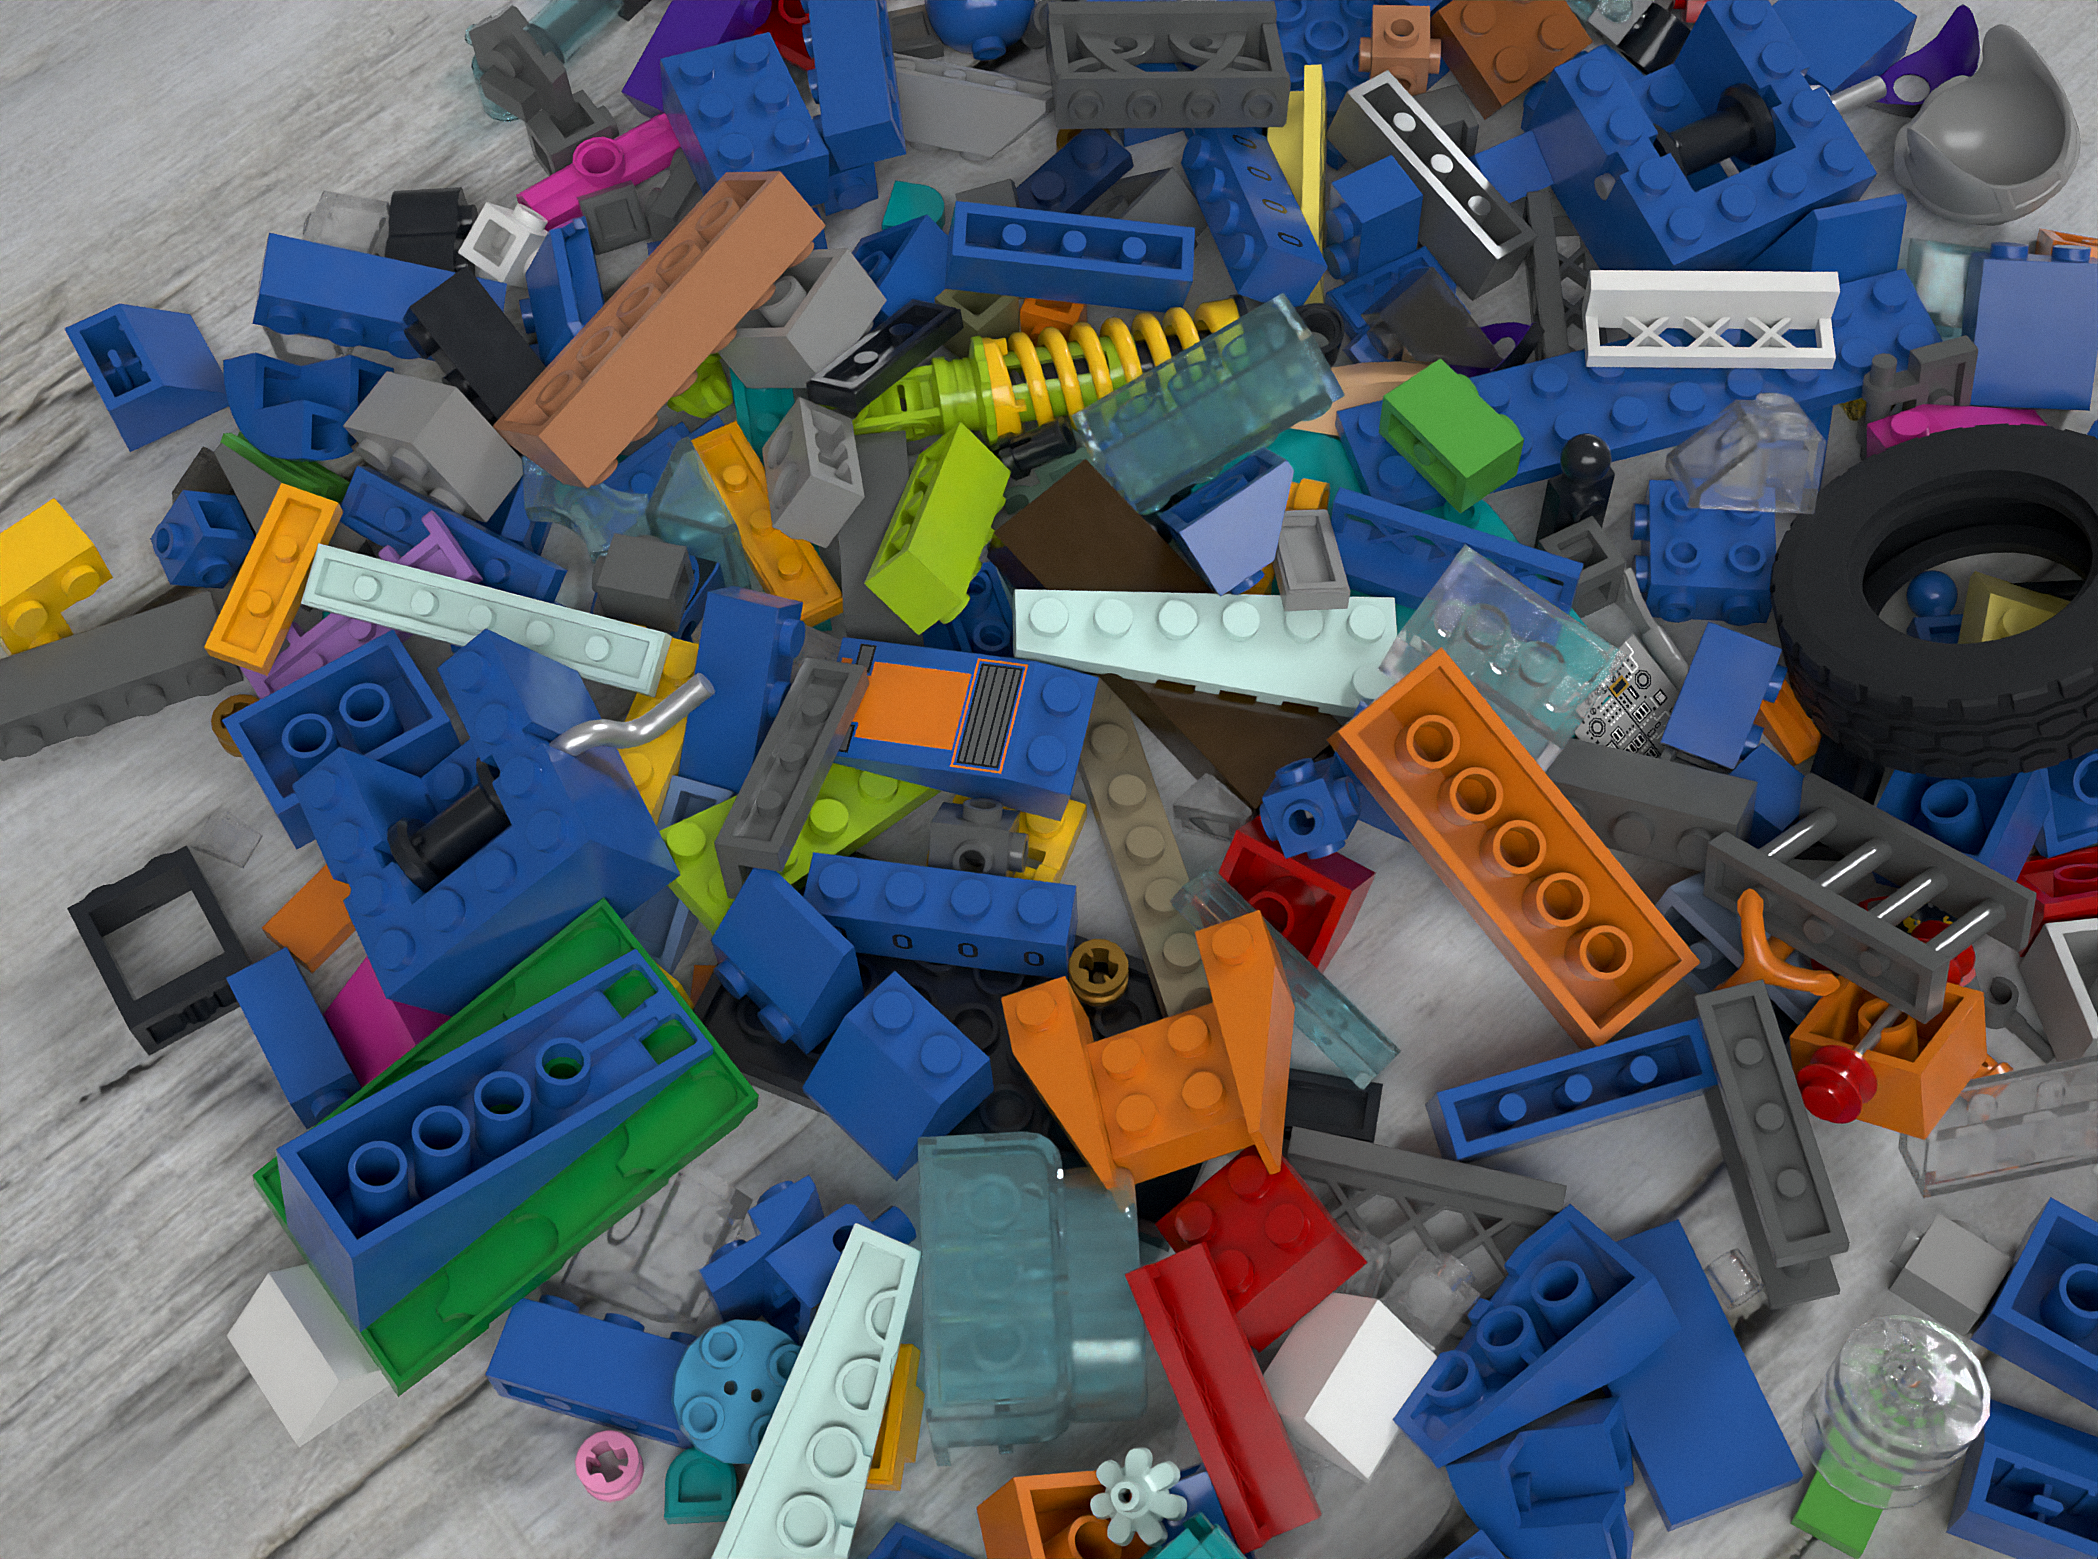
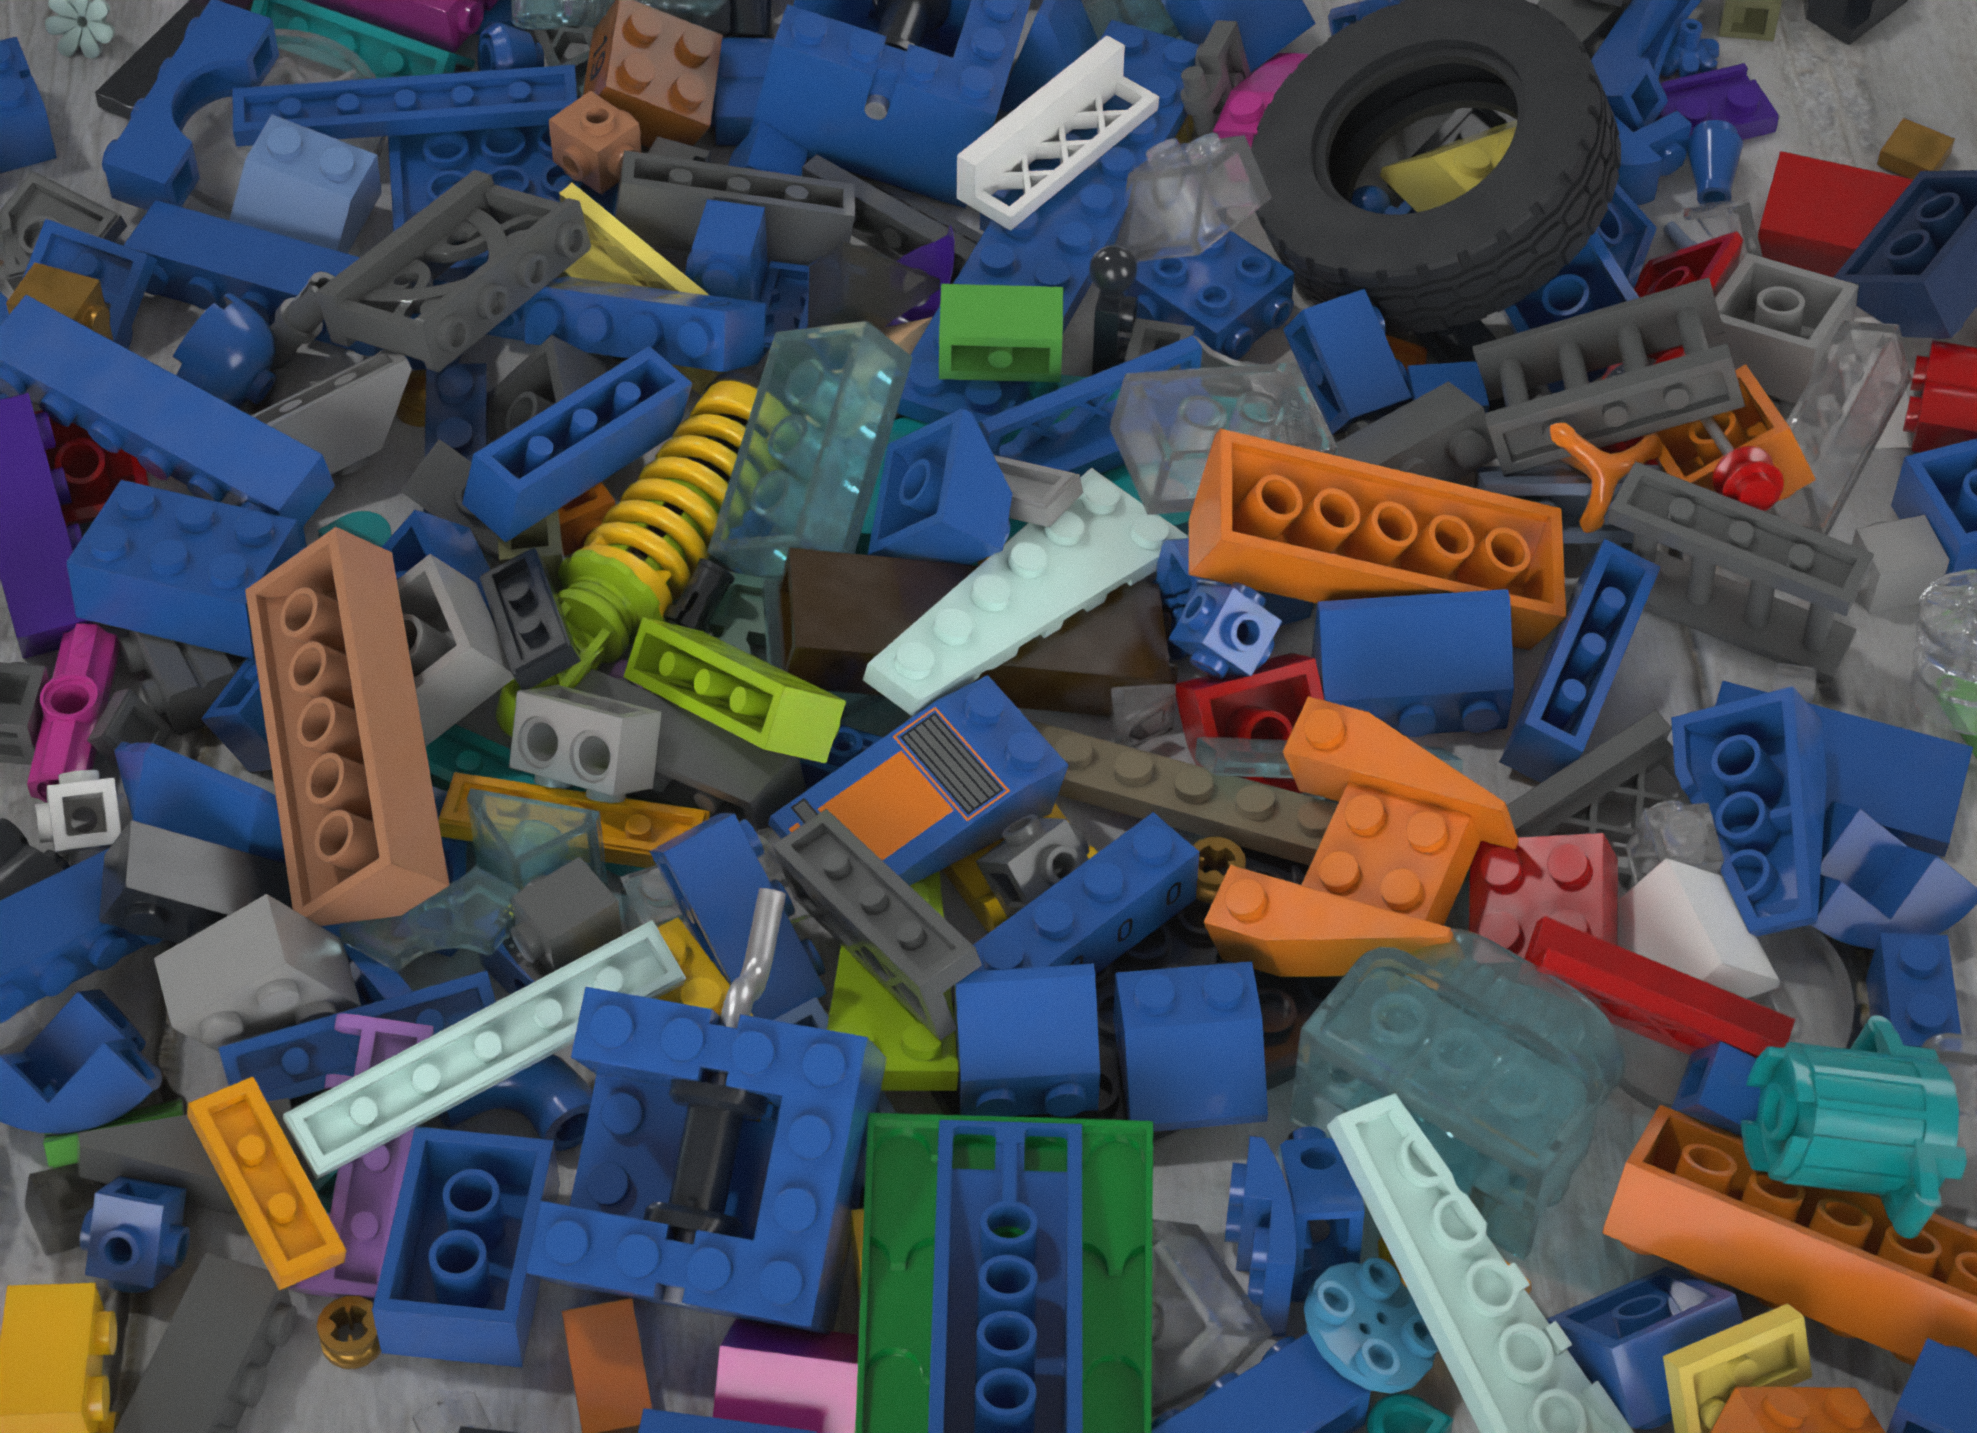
camera: 55 degrees left, 10 degrees down
(1149, 1498) = (1697, 1110): light aqua plant -> none
(1438, 971) = (1419, 659): none -> blue slope

